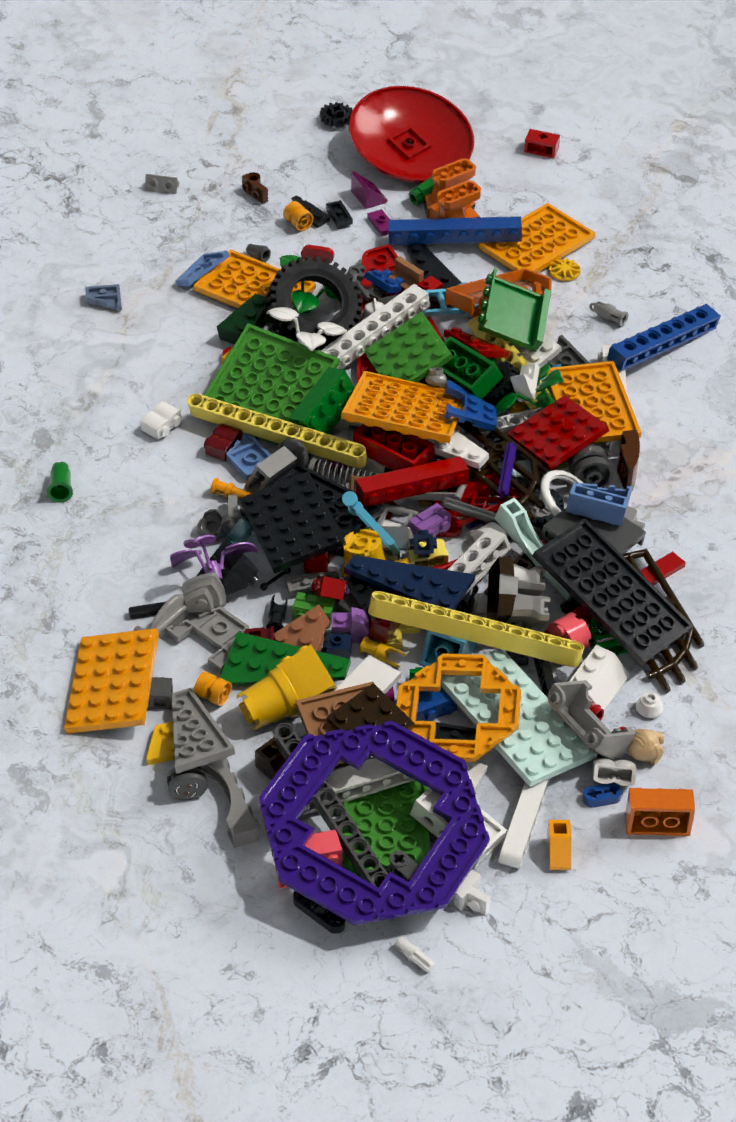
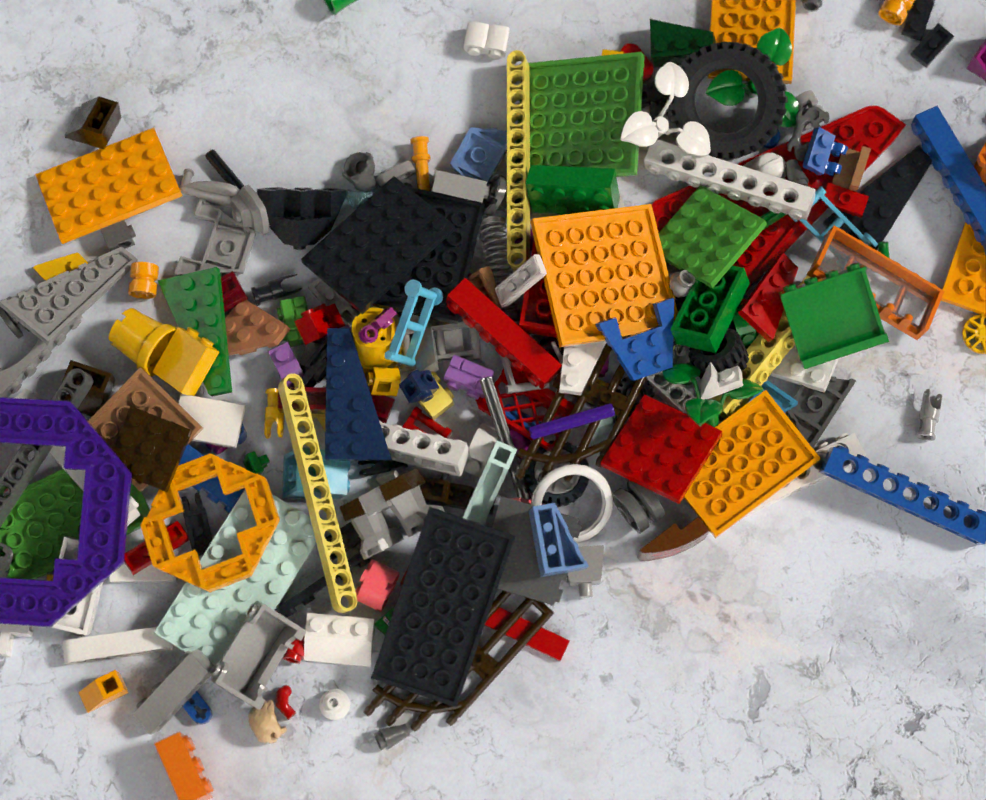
camera: 65 degrees right, 30 degrees up
(50, 666) = (95, 122): none -> dark brown slope
(211, 566) = (285, 200): medium lavender plant -> none
(221, 441) = (487, 114): dark red brick -> none
(323, 252) = (845, 58): red tile -> none
(338, 645) = (256, 369): dark blue brick -> none
(363, 531) = (382, 321): none -> magenta plate
(379, 221) = (949, 95): magenta plate -> none
(380, 447) = (520, 281): none -> white tile
(588, 790) = (174, 691): none -> light grey brick
(607, 771) = (219, 707): white brick -> none
(695, 682) = (391, 736): none -> dark grey cone

